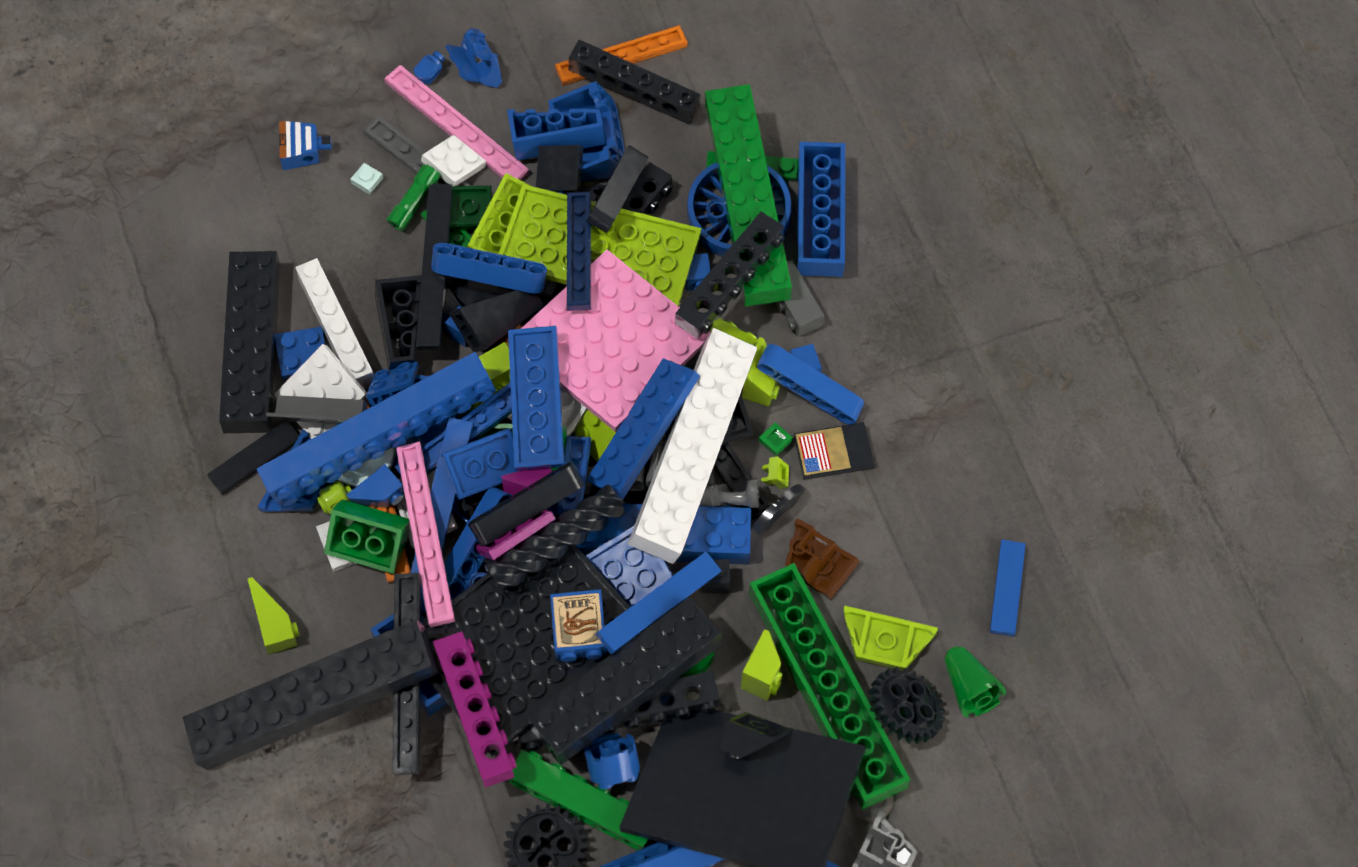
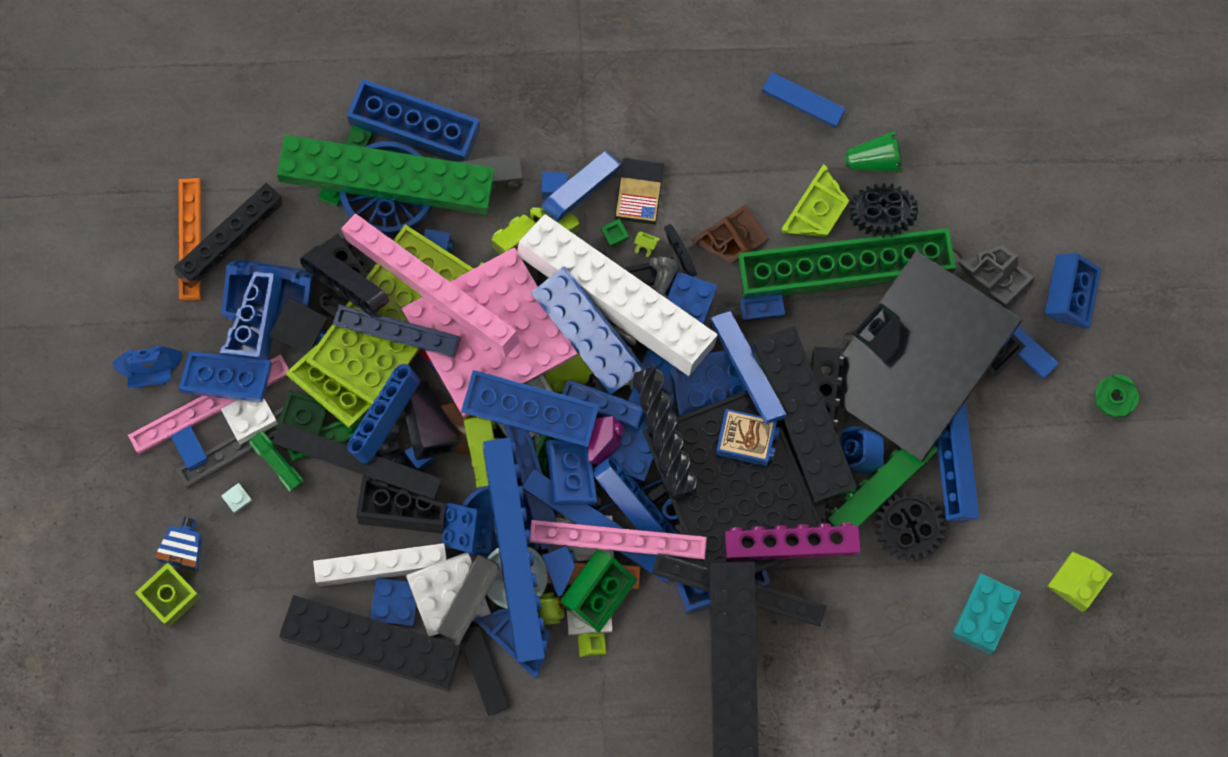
camera: 70 degrees left, 10 degrees up
(245, 145) = (168, 595): none -> lime brick
(273, 620) = (646, 692): lime slope -> none
(313, 555) = (591, 644): none -> lime slope
(403, 120) = (189, 448): none -> blue tile
(429, 67) = (141, 410): blue arm -> none
(486, 126) = (225, 376): none -> blue plate
(516, 535) = (647, 463): magenta tile -> none
(526, 504) = (626, 446): black beam -> none
(635, 264) = (430, 285): none -> bright pink brick
(746, 613) = (762, 307): none -> blue plate
(761, 228) = (497, 259): black brick -> none
(762, 670) = (817, 308): lime slope -> none

